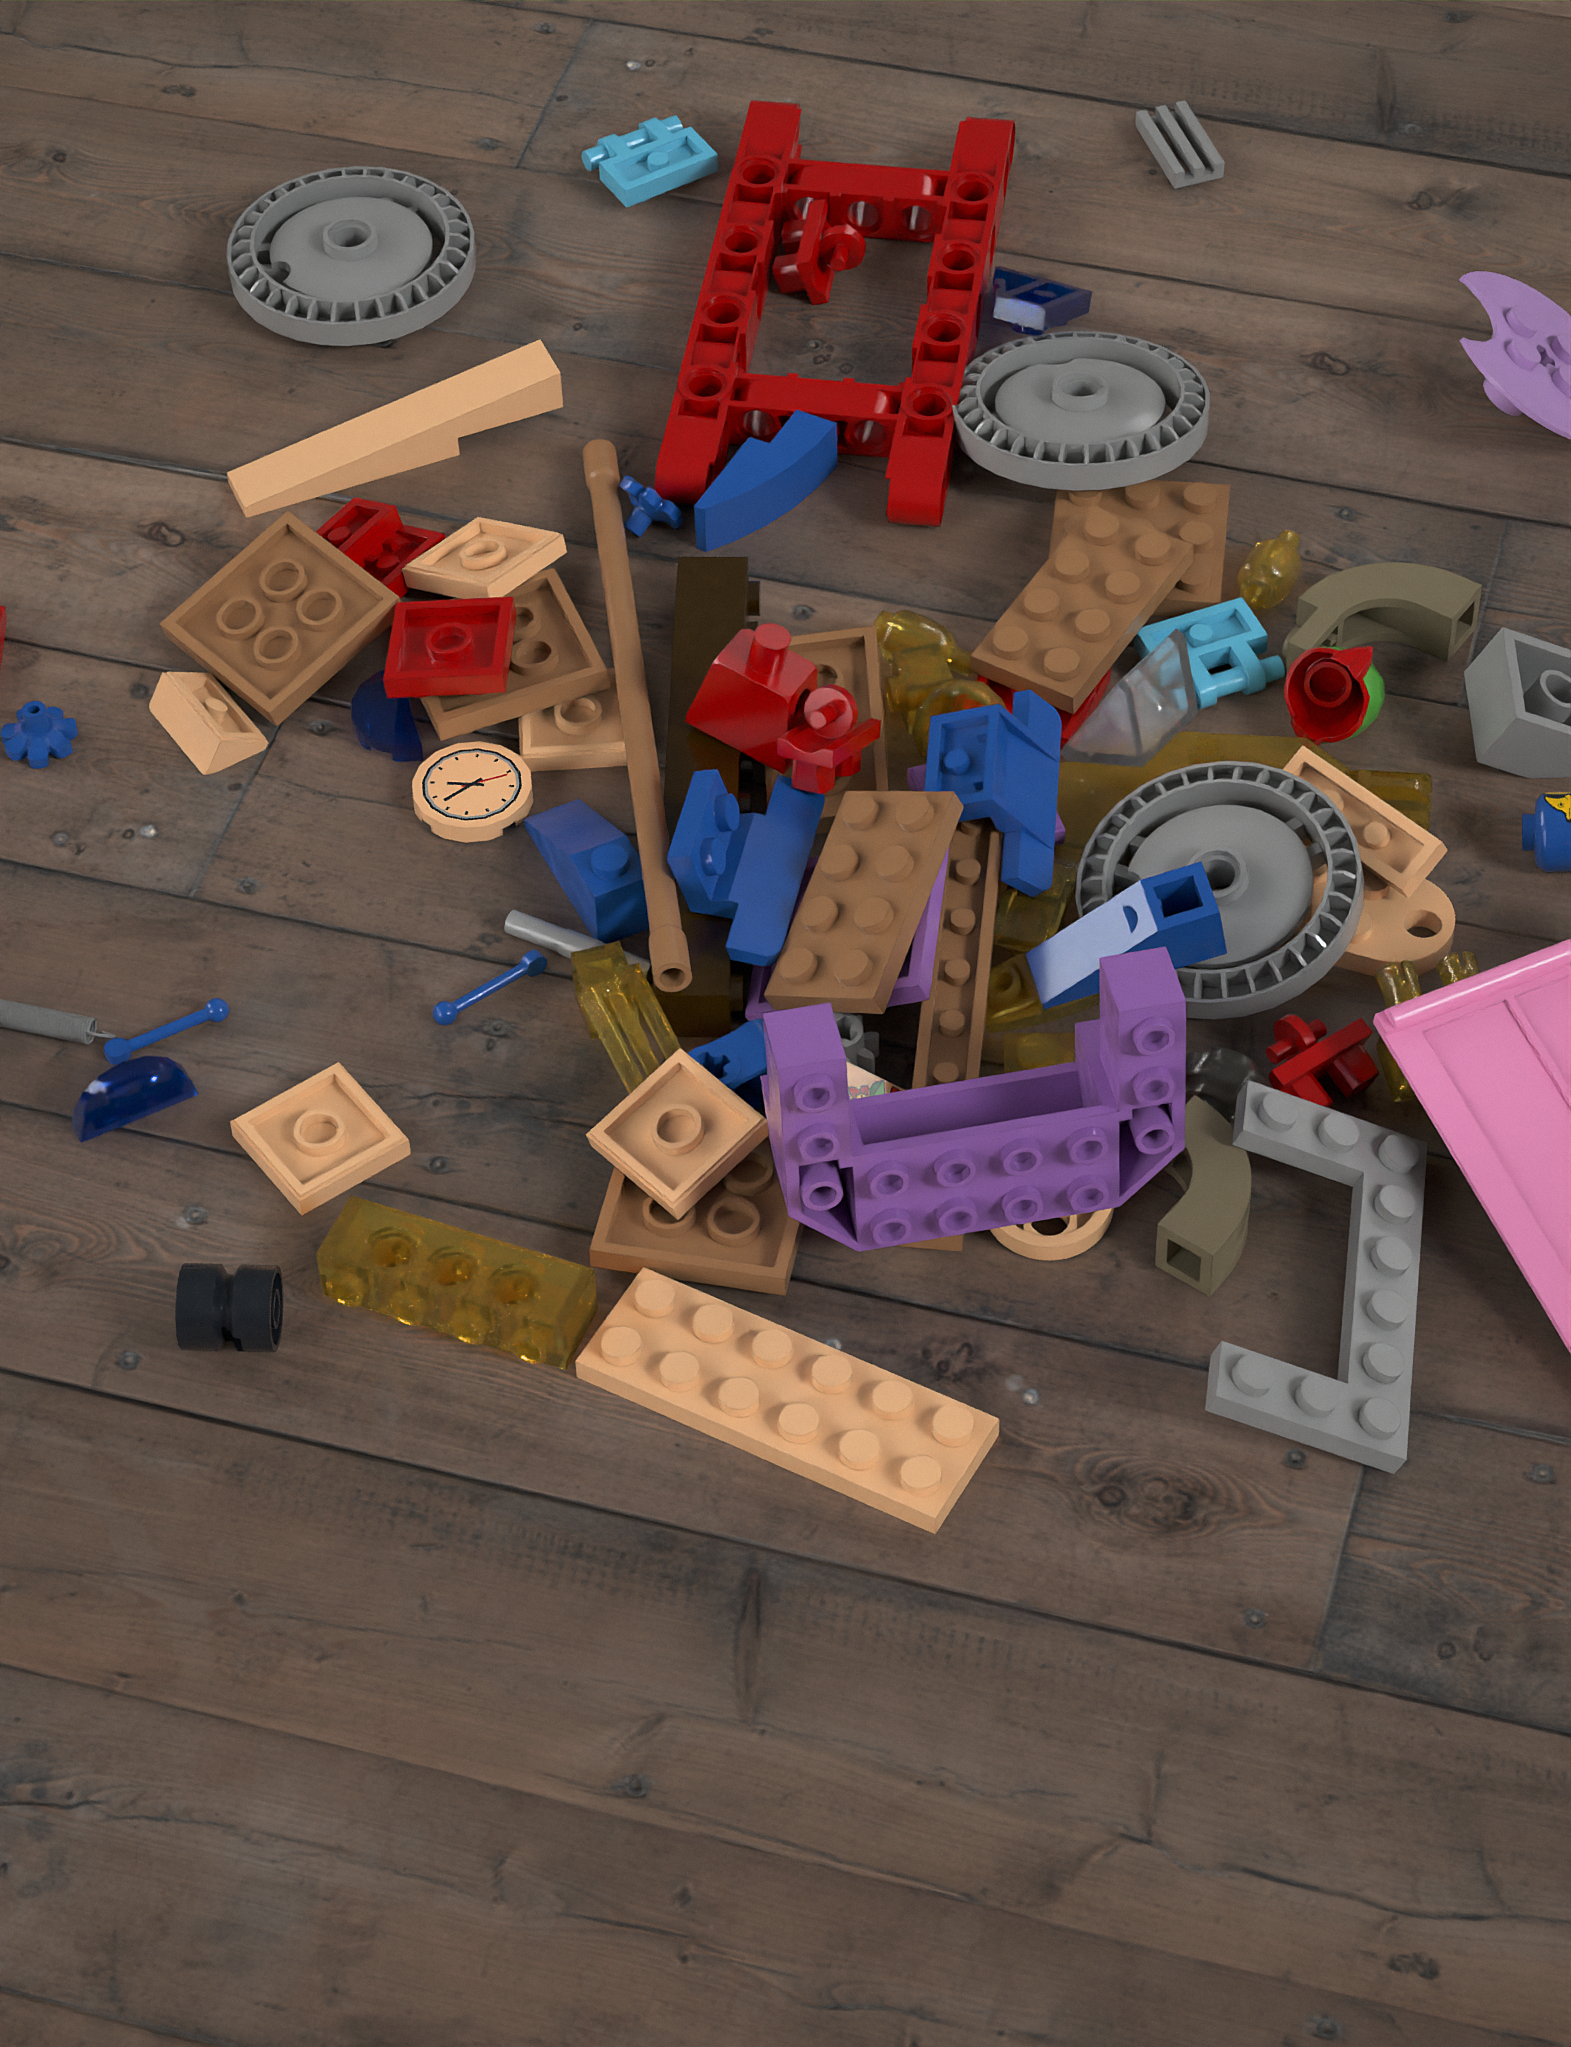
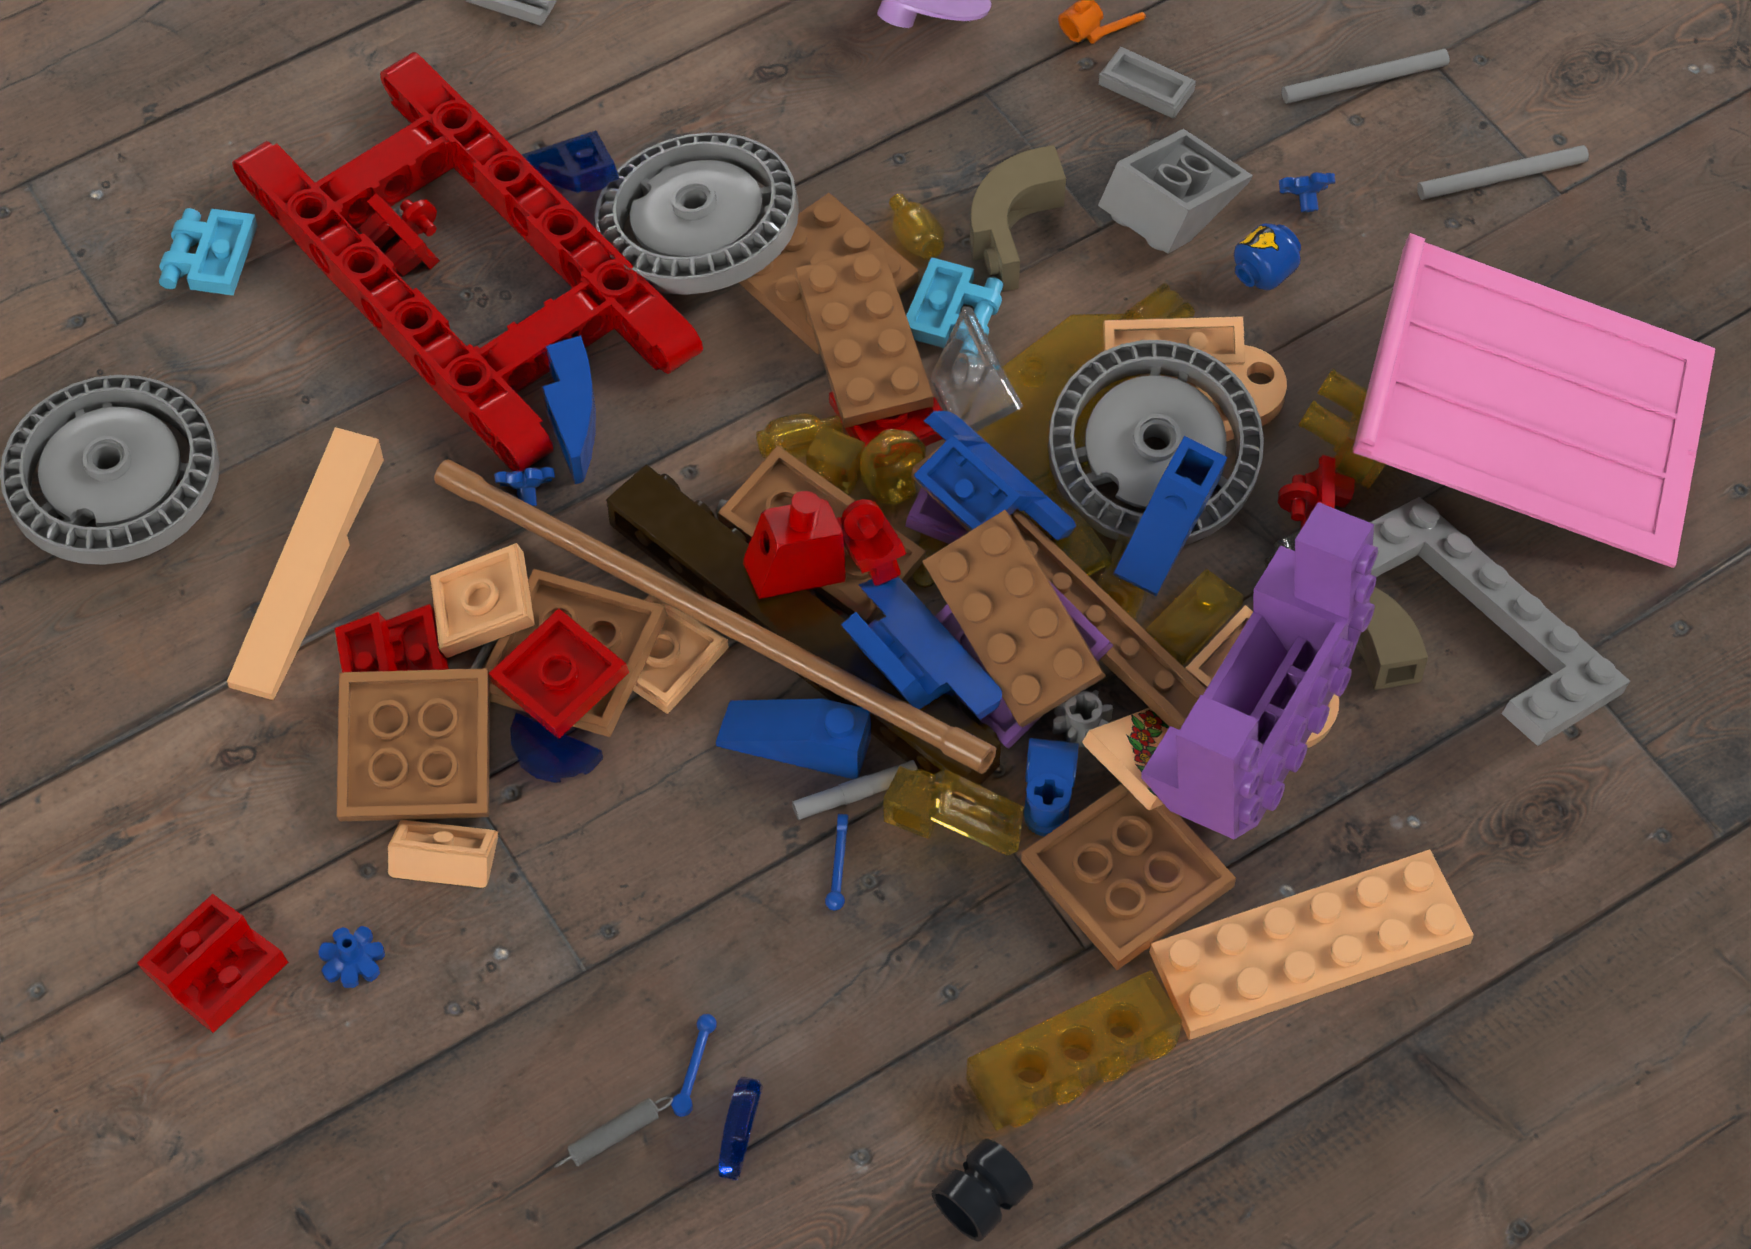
camera: 50 degrees left, 10 degrees up
(320, 1138) = (872, 1042): light nougat tile -> none
(472, 791) = (664, 751): light nougat tile -> none
(679, 1133) = (1086, 848): light nougat tile -> none
(1333, 693) = (1063, 276): red hat -> none

